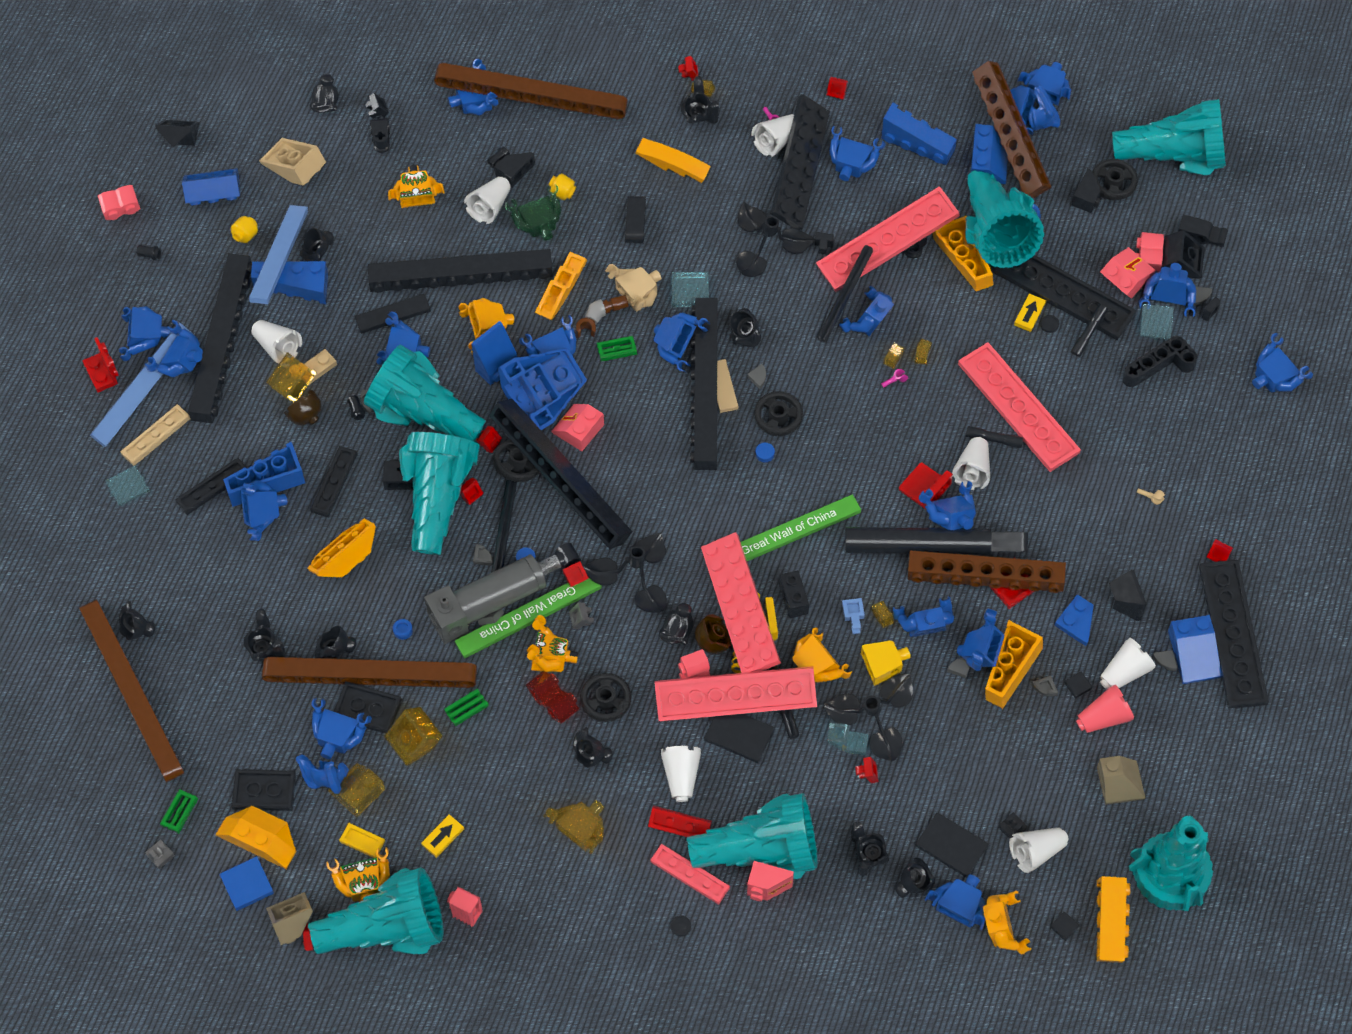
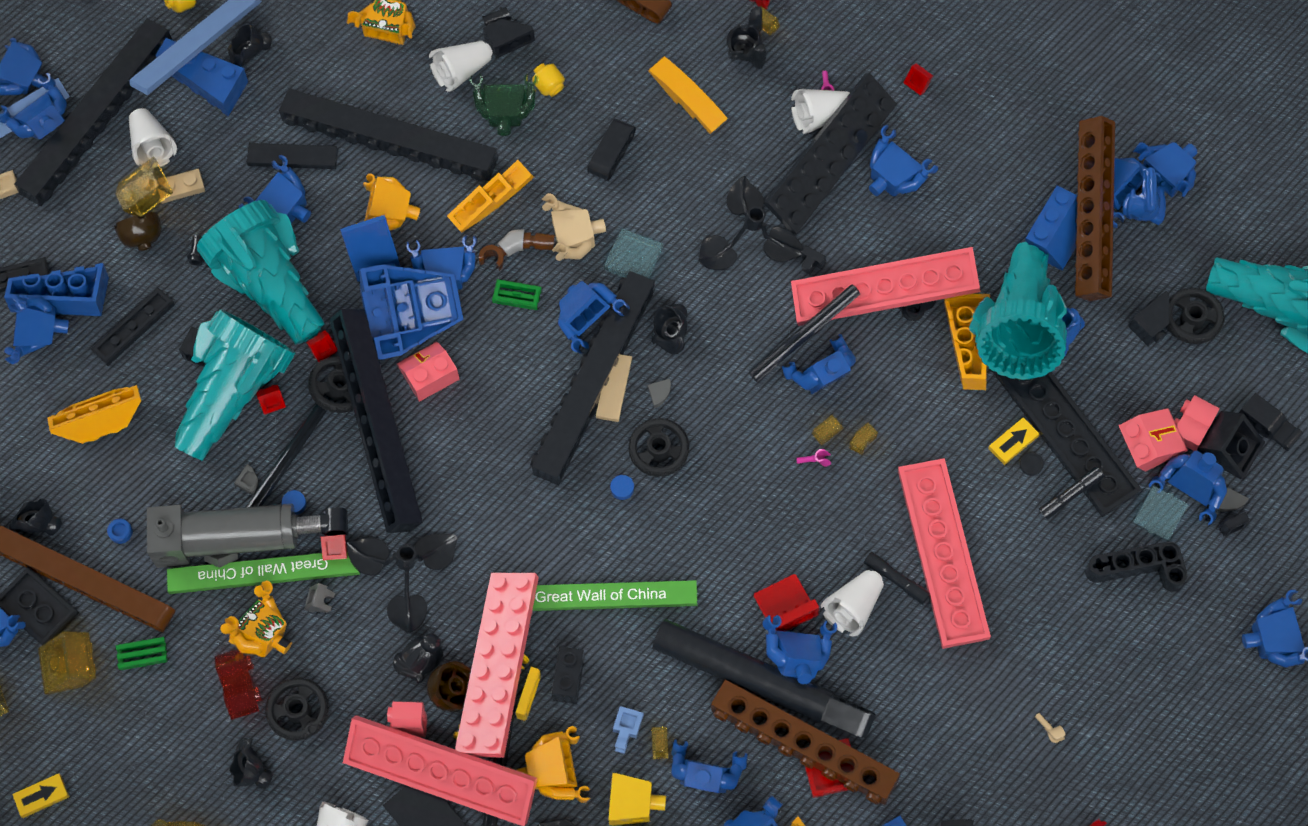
camera: 25 degrees right, 5 degrees up
(917, 136) = (982, 173): blue wedge -> none

